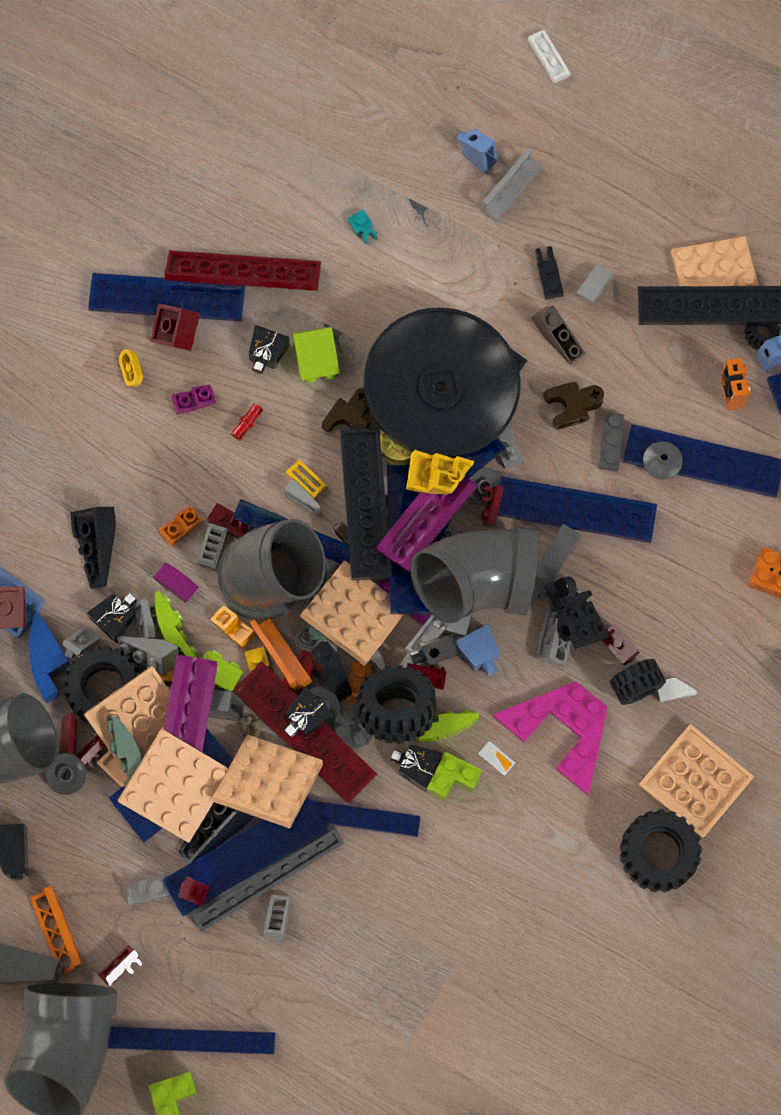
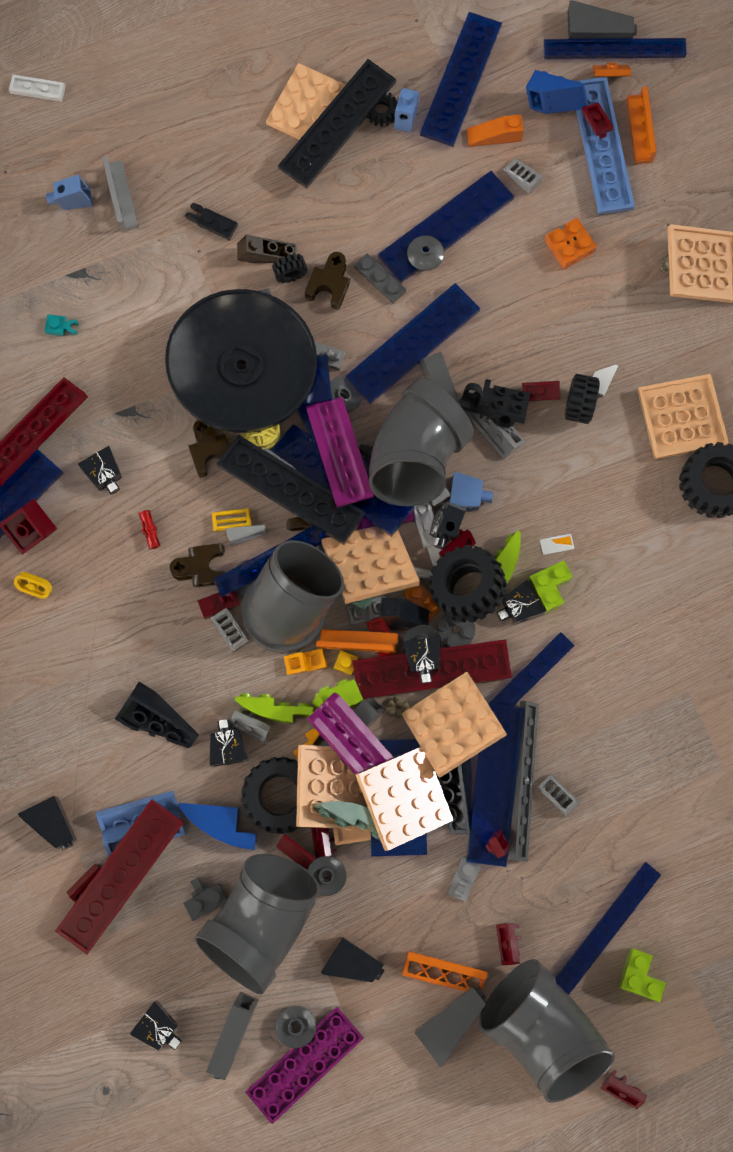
camera: 50 degrees left, 5 degrees up
(80, 641) = (229, 787): light grey plate -> none
(150, 652) = (280, 739): light grey slope -> none
(175, 581) = (236, 678): magenta slope -> none
(181, 526) = (193, 642): orange slope -> none
(193, 400) = (98, 556): magenta slope -> none
(246, 480) = (197, 565): none -> dark brown piece
(316, 354) = (137, 436): lime slope -> none
(436, 472) = (311, 418): yellow slope -> none
(490, 513) = (364, 398): dark red plate -> none
(556, 362) = (289, 268): none -> black tyre
(578, 712) = (568, 459): dark pink wing -> none
(594, 284) = (248, 195): light grey slope -> none
(734, 383) = (408, 157): orange piece -> none

